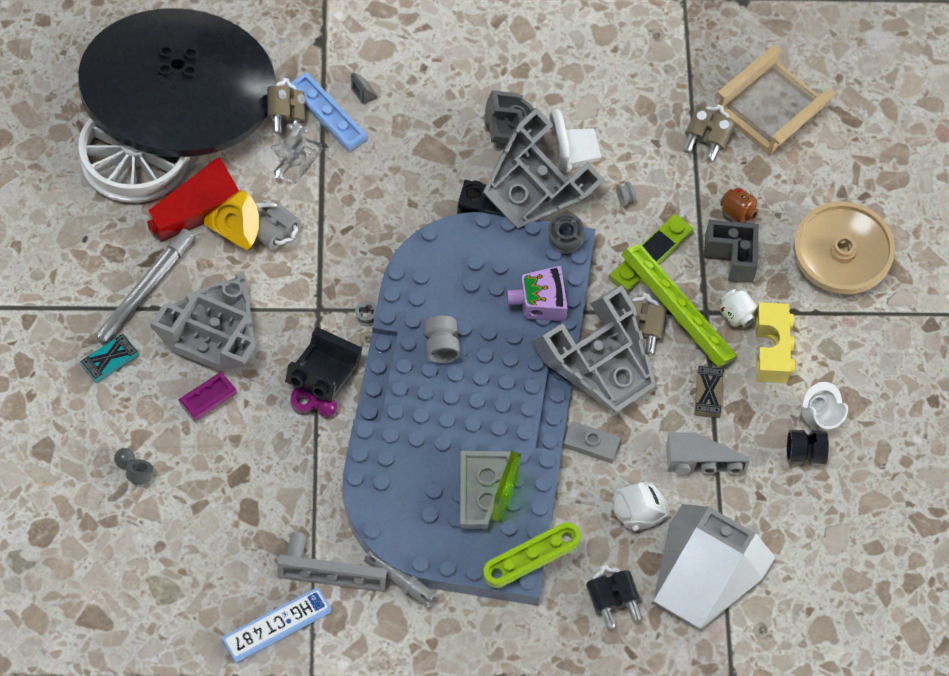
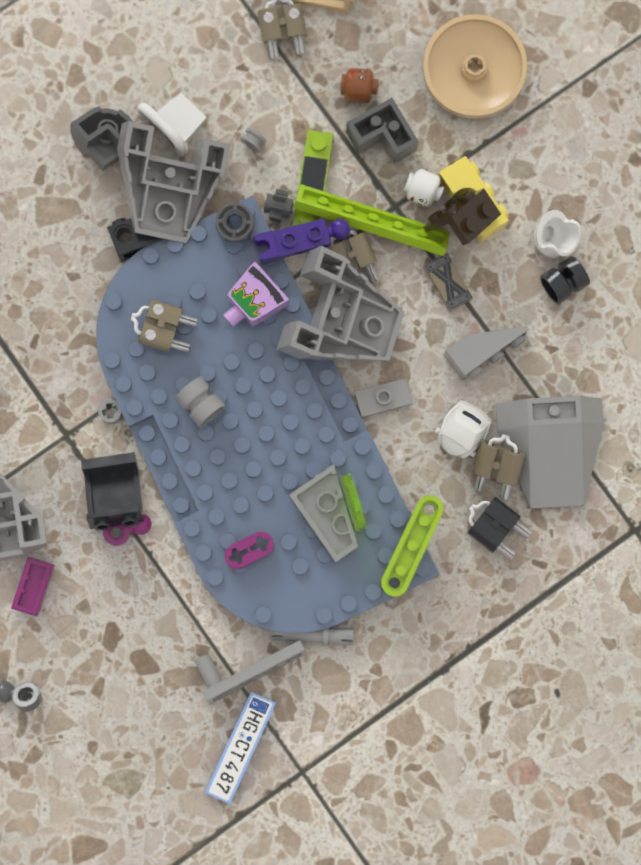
camera: 35 degrees left, 20 degrees up
(397, 473) = (252, 556): none -> magenta beam
(452, 268) = (161, 325): none -> dark tan piece
(607, 276) = (299, 239): none -> dark purple plate
(610, 250) = (278, 205): none -> dark grey gear
(650, 546) = (498, 463): none -> dark tan piece
(757, 343) = (465, 215): none -> dark brown bracket

